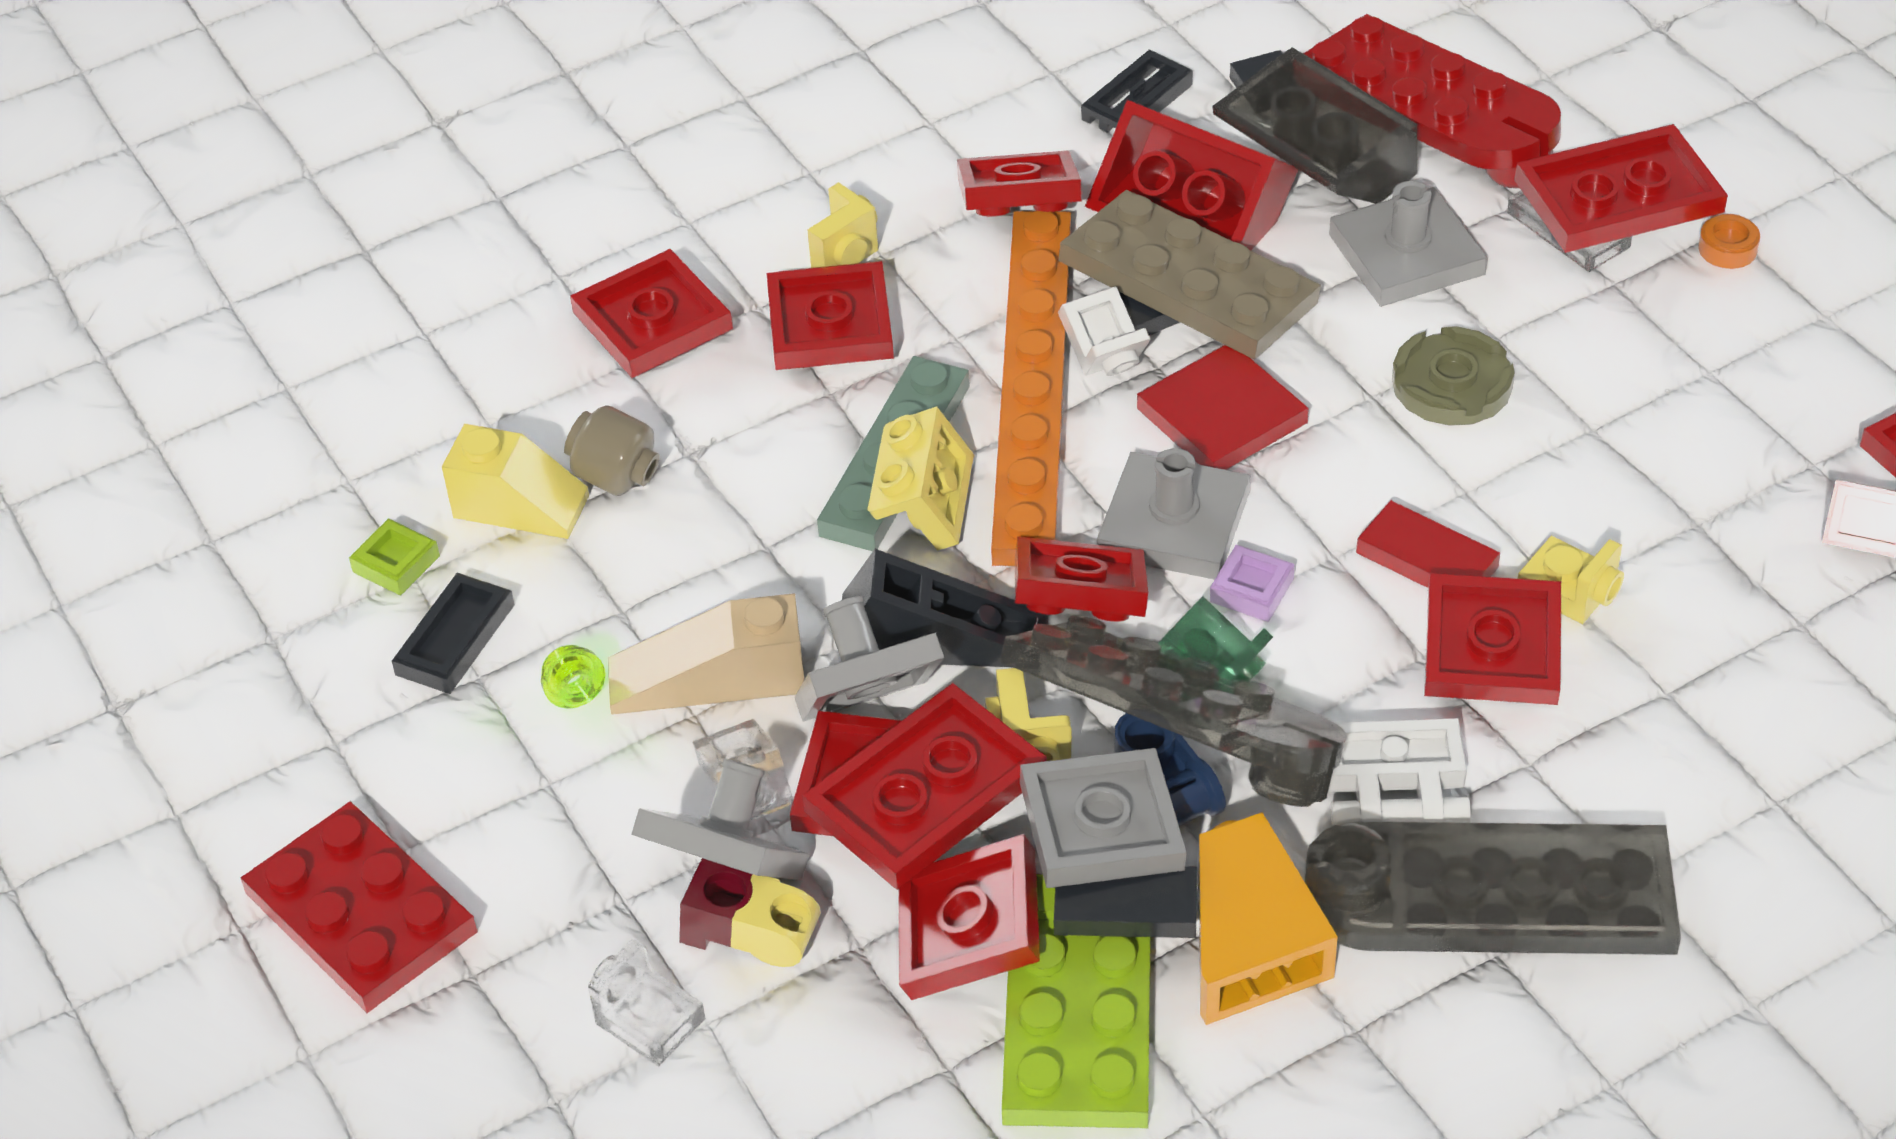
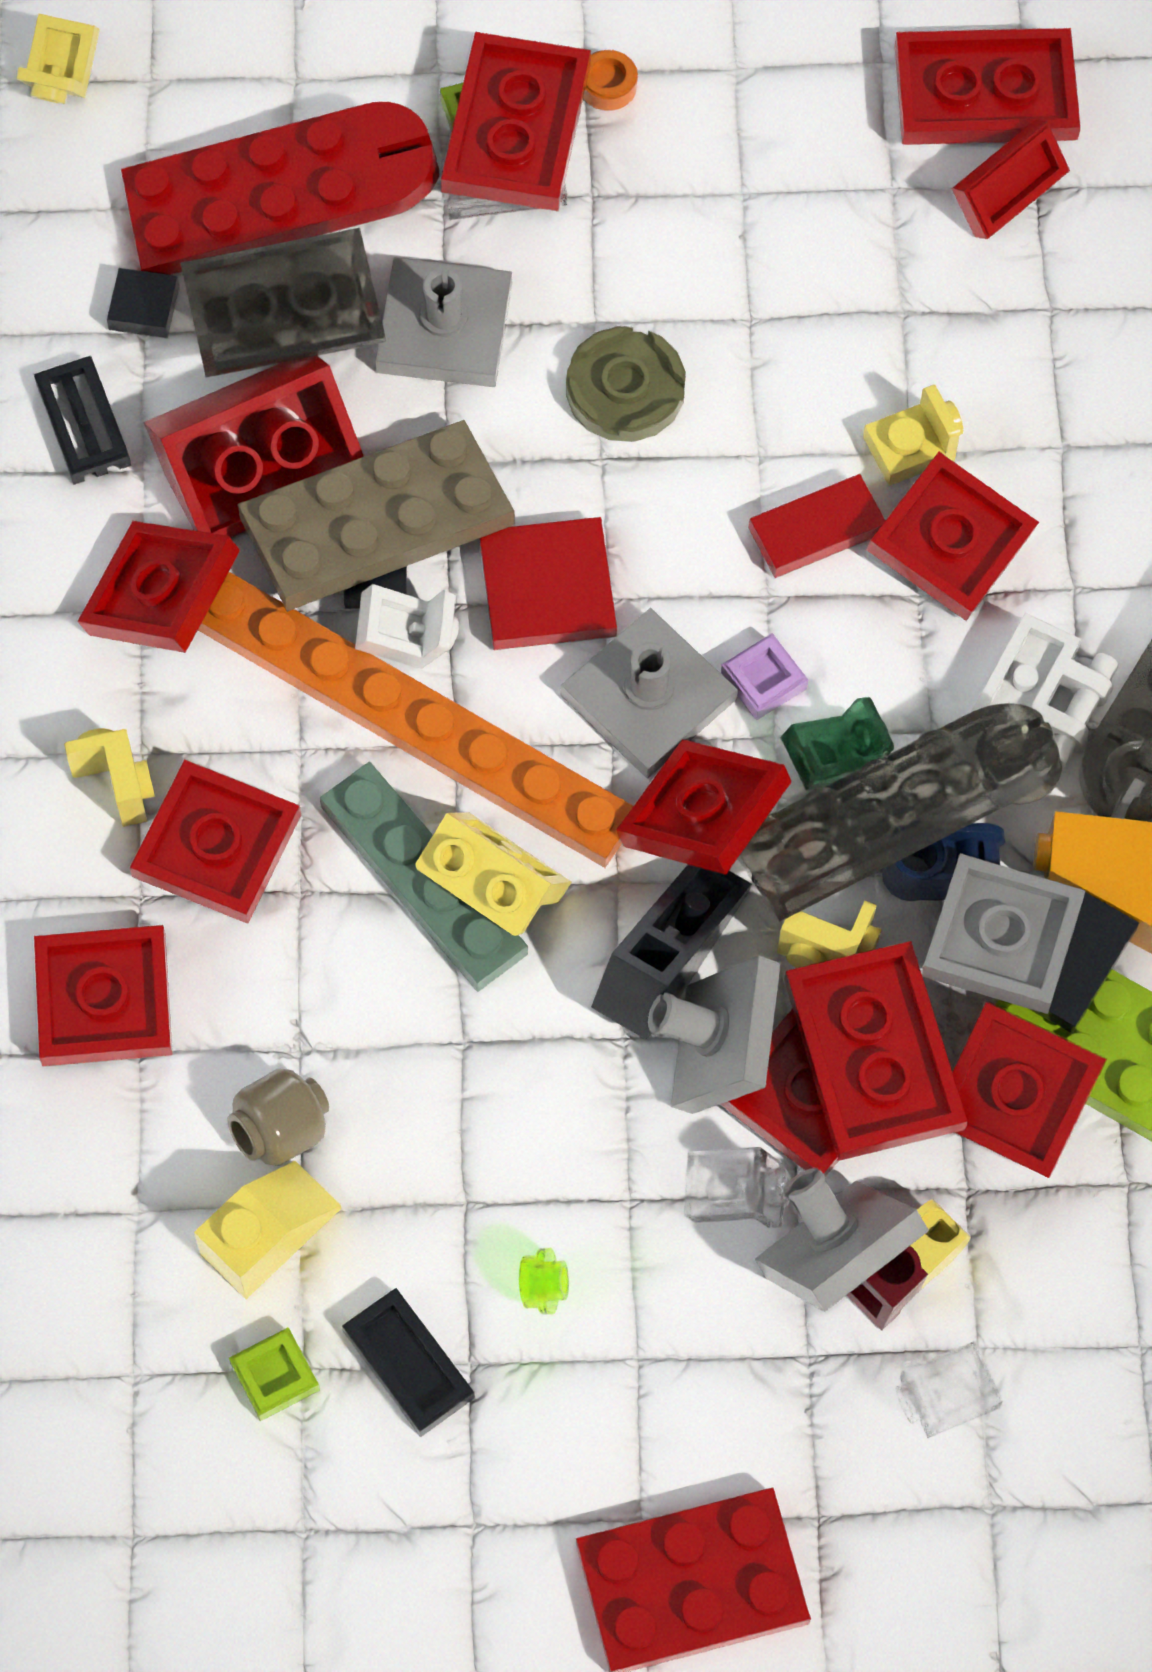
camera: 65 degrees left, 20 degrees up
(716, 657) = (595, 1155): tan slope -> none

